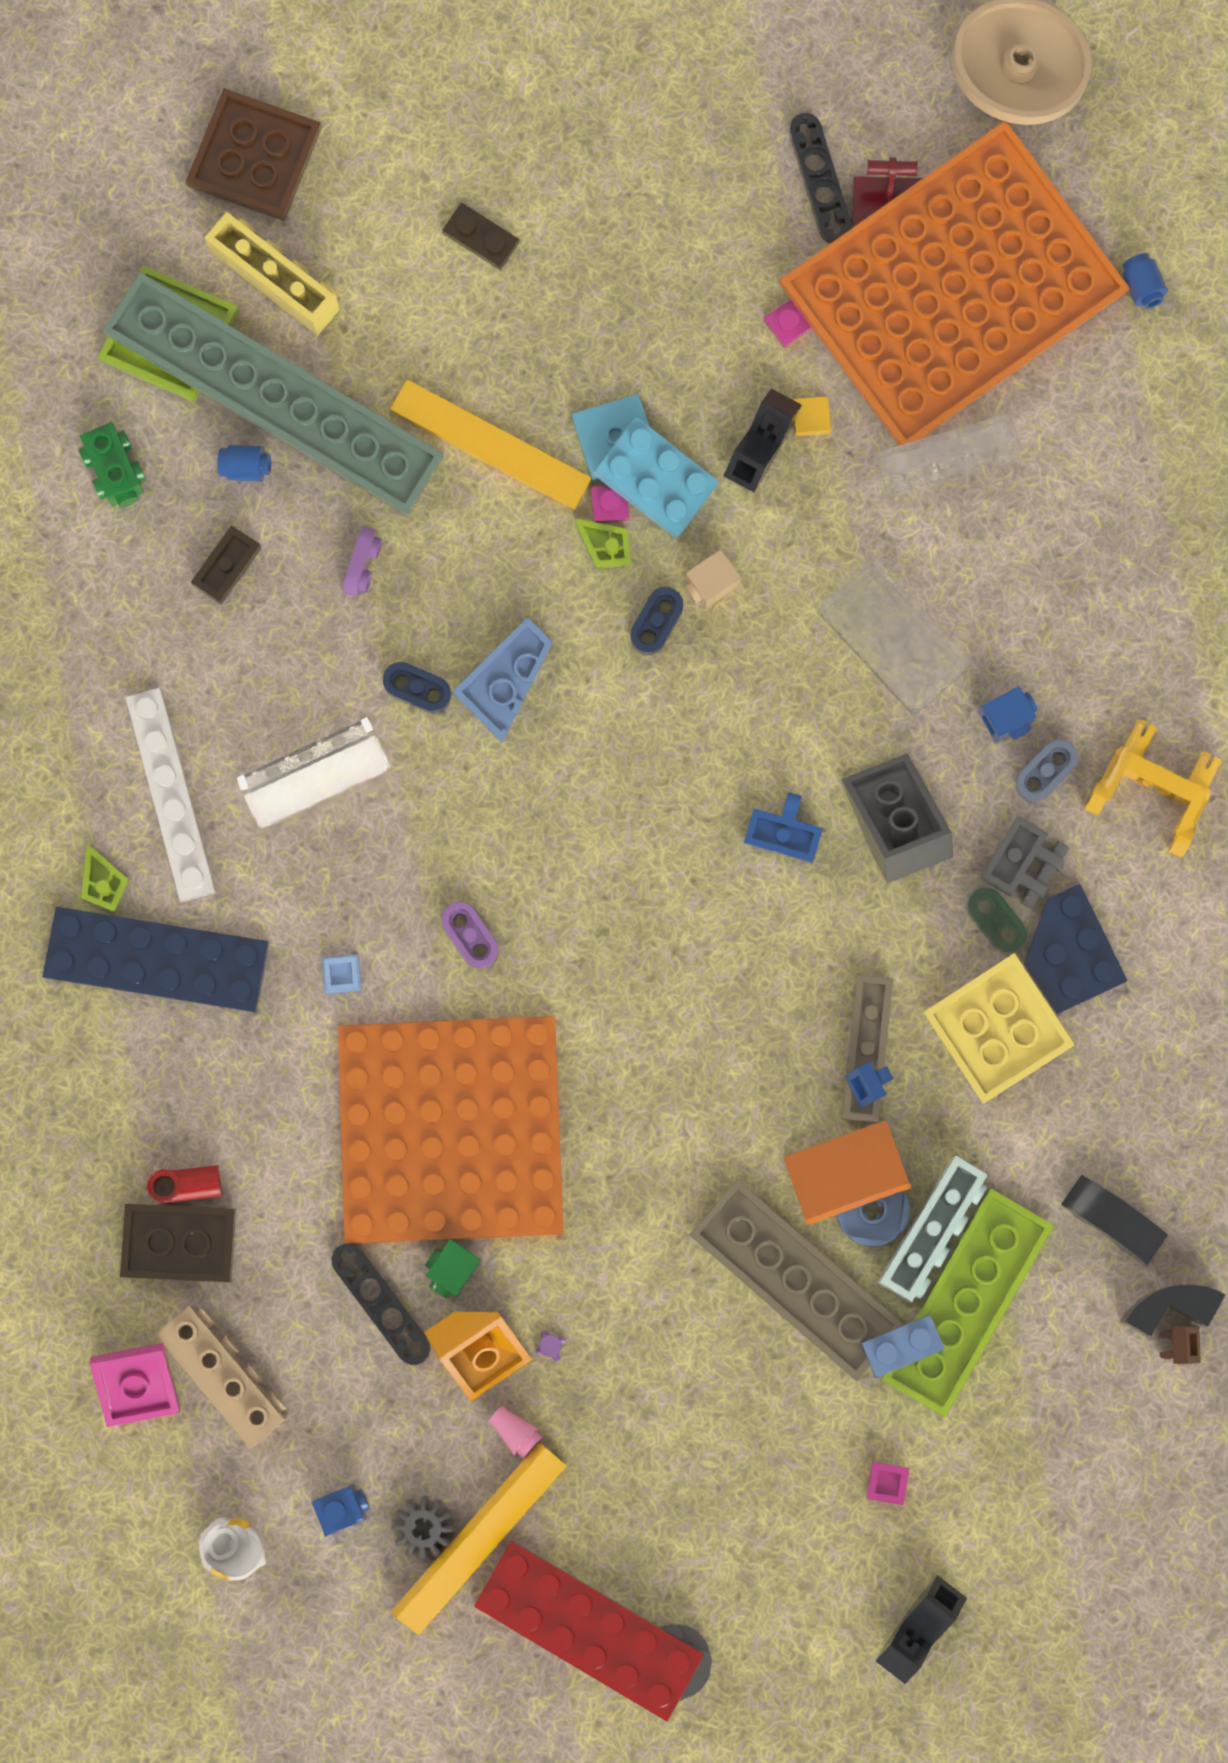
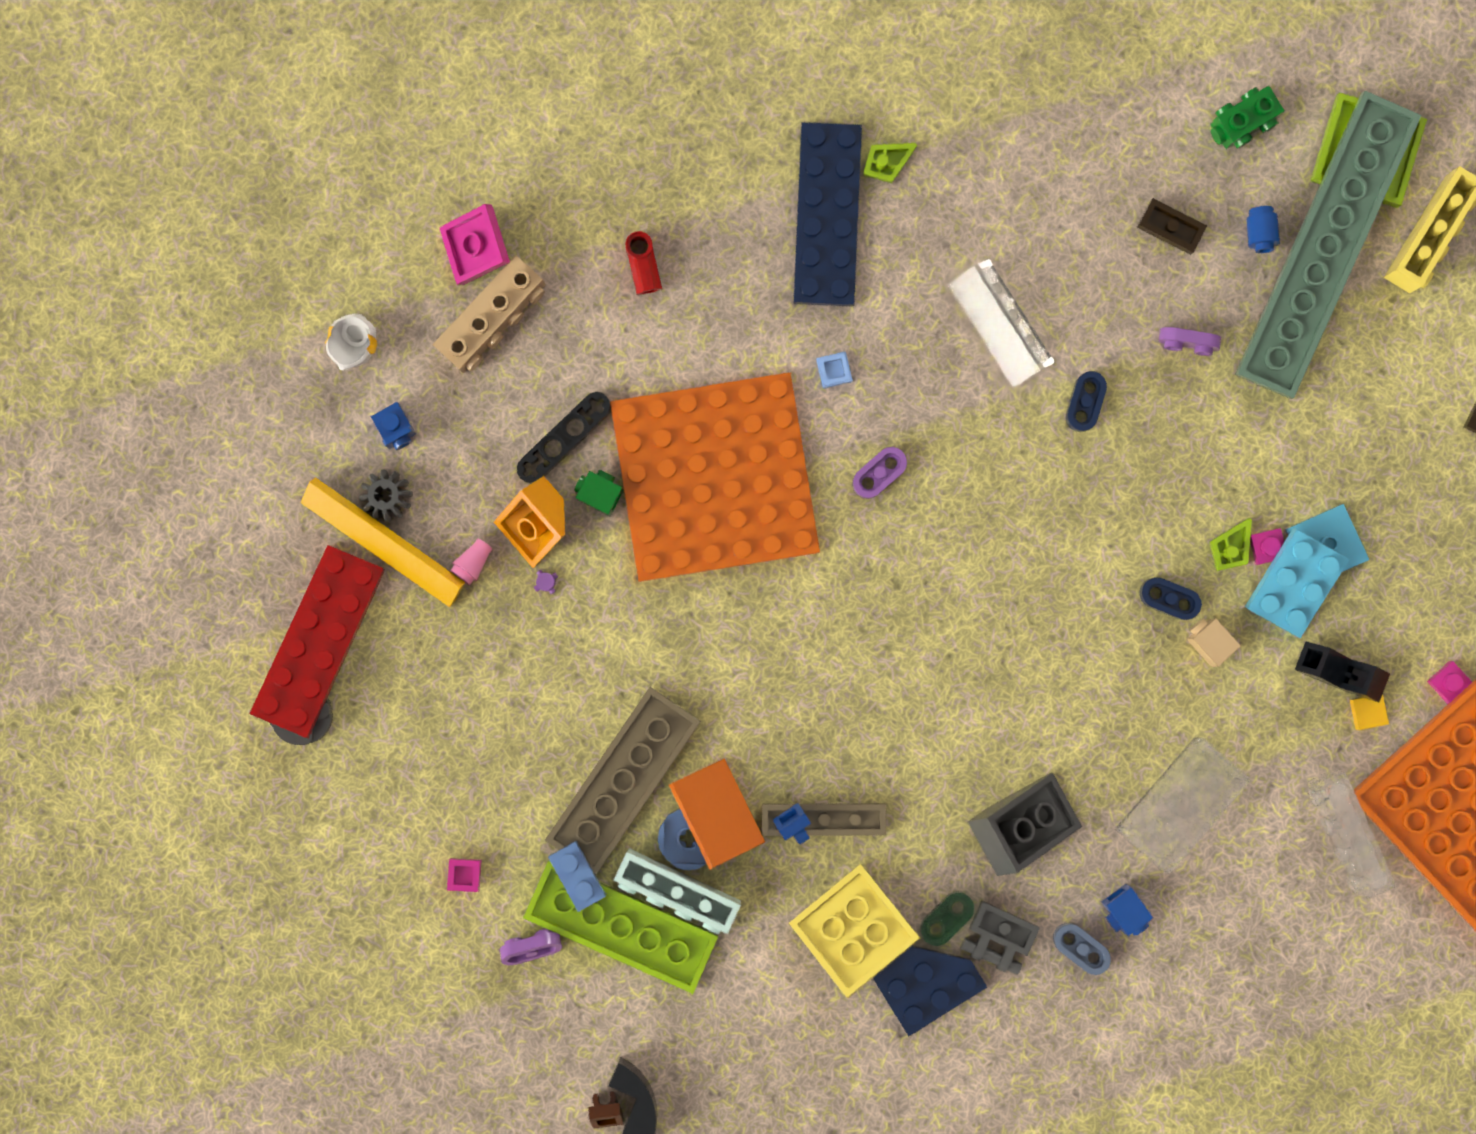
camera: 85 degrees right, 5 degrees up
(170, 795) = (968, 207): white plate -> none
(178, 1243) = (594, 264): dark brown plate -> none
(491, 445) = (1306, 438): yellow tile -> none
(504, 678) = (1102, 473): medium blue wing -> none
(784, 833) = (999, 728): blue plate -> none
(920, 1629) = (354, 918): black brick -> none
(983, 1423) = (531, 948): none -> medium lavender plate
(1115, 1219) = (703, 1045): black brick -> none
(1190, 792) = (1078, 1074): yellow connector -> none

